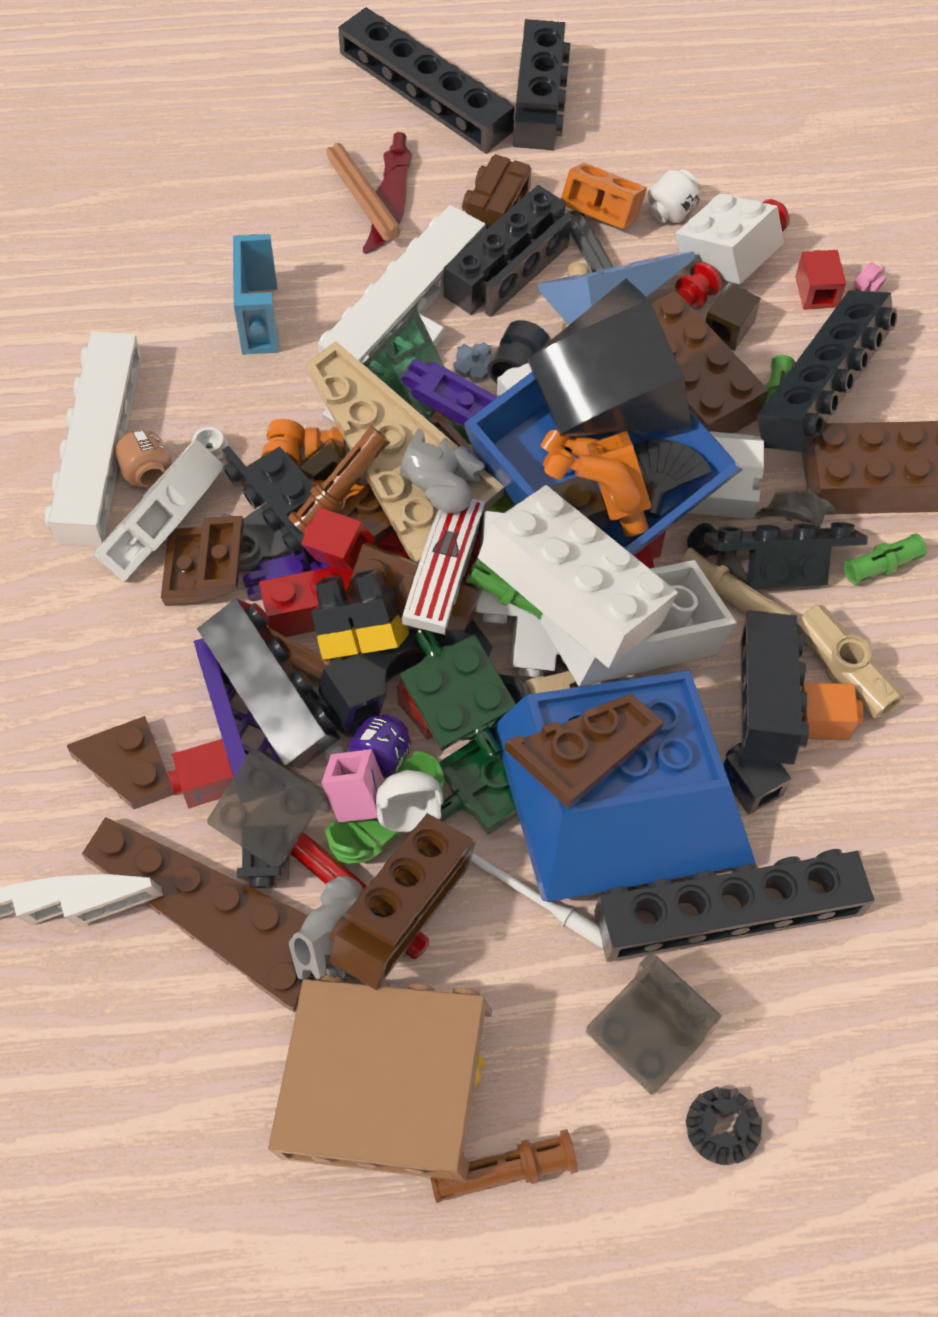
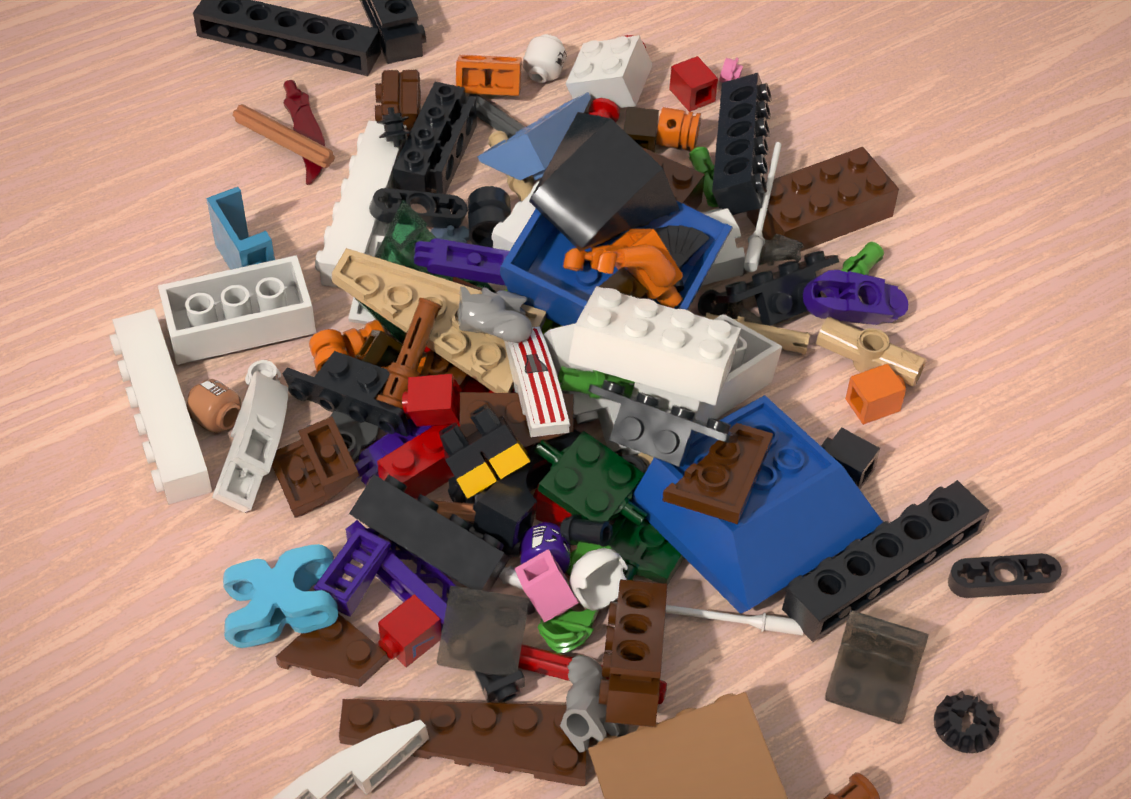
camera: 25 degrees left, 10 degrees down
(98, 685) = (279, 596): none -> medium azure piece
(174, 707) = (355, 590): none -> dark purple slope
(215, 364) = (237, 309): none -> white brick
(417, 739) = (578, 530): none -> black pin
(465, 221) = (393, 126): none -> black wheel
(465, 314) = (442, 202): none -> black beam
(540, 666) = (655, 429): none -> bracket
(771, 688) = (829, 389): black brick -> none
(774, 326) = (684, 131): none -> orange piece
(781, 488) = (756, 240): none -> white piece
(888, 999) = (1017, 564): none -> black beam
(889, 609) = (842, 288): none -> dark purple piece

